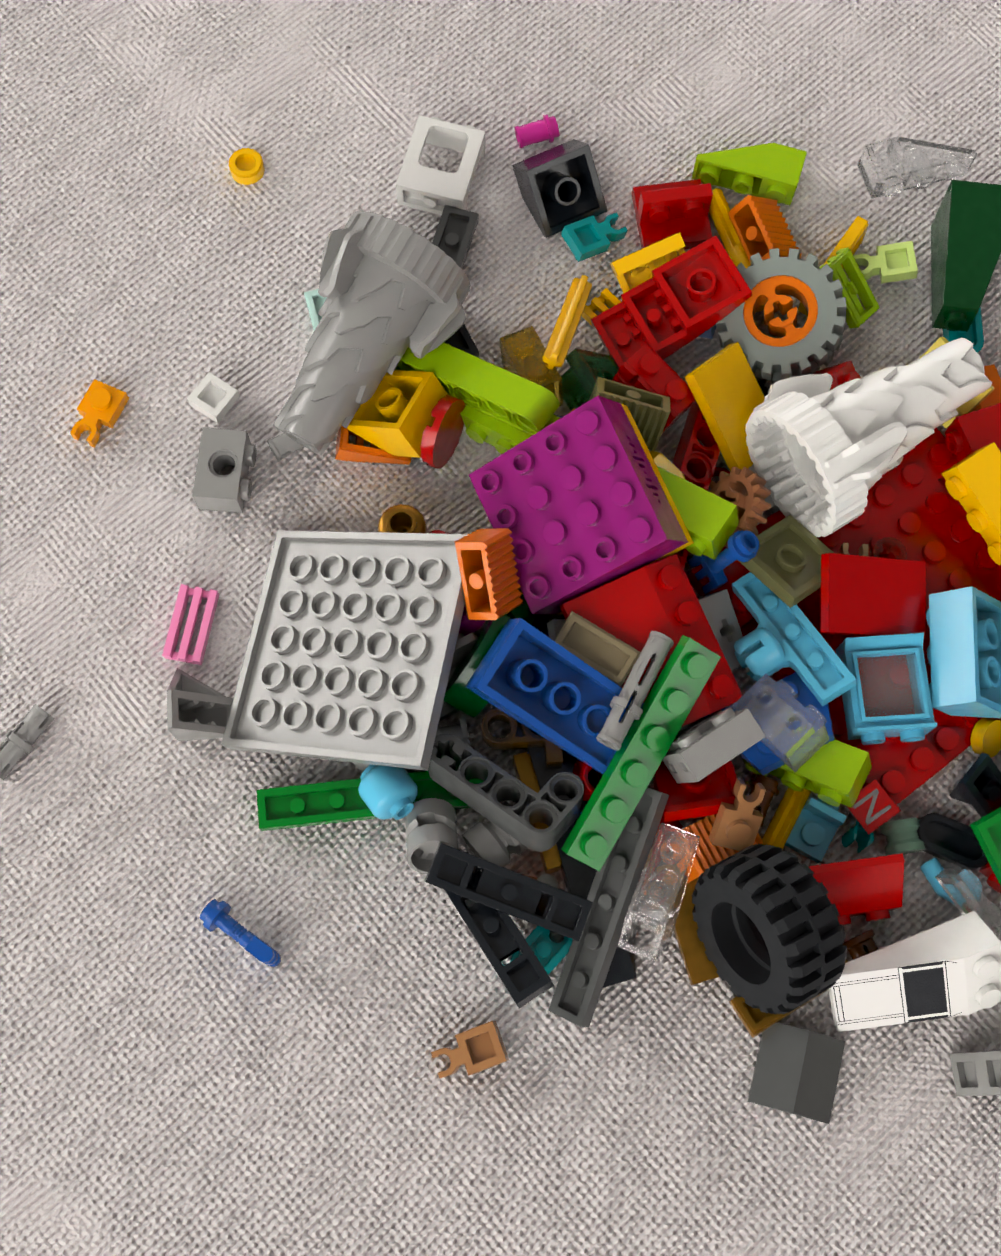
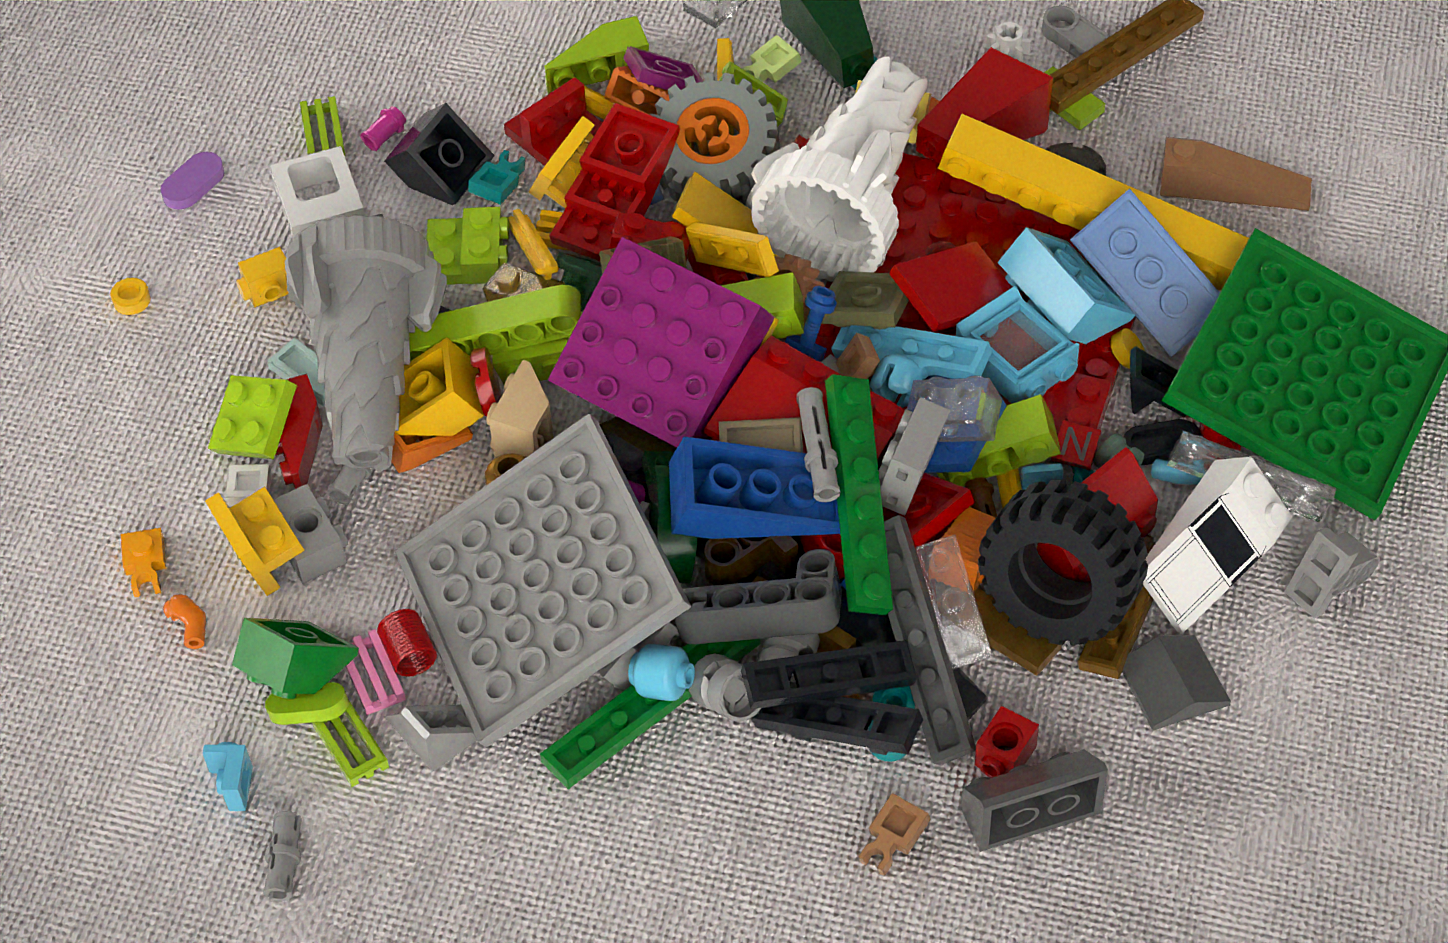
camera: 30 degrees left, 20 degrees down
(30, 650) = (233, 772): none -> medium azure bracket
(96, 485) = (184, 609): none -> orange arm
(122, 622) = (322, 706): none -> lime tile
(132, 707) = (364, 767): none -> lime tile
(136, 575) = (290, 655): none -> green slope
(173, 452) = (257, 535): none -> yellow bracket
(216, 916) = (645, 871): blue hinge -> none
(228, 620) = (406, 642): none -> red piece
(249, 342) = (252, 417): none -> lime plate
(276, 372) = (300, 434): none -> red slope
(343, 206) = (263, 277): none -> yellow brick
(362, 88) = (192, 180): none -> medium lavender tile
(442, 484) = (522, 416): none -> tan slope
(488, 573) = (626, 434): orange brick -> none
(500, 80) = (319, 110): none -> lime tile
(524, 285) = (471, 245): none -> lime plate
(602, 1102) = (1034, 798): none -> dark grey slope
(632, 1039) = (1005, 730): none -> red brick
(707, 445) = (732, 249): none -> yellow tile
(738, 822) = (975, 508): medium nougat plate -> none
(739, 616) = (858, 358): none -> medium nougat plate
(789, 220) = (659, 69): none -> magenta tile

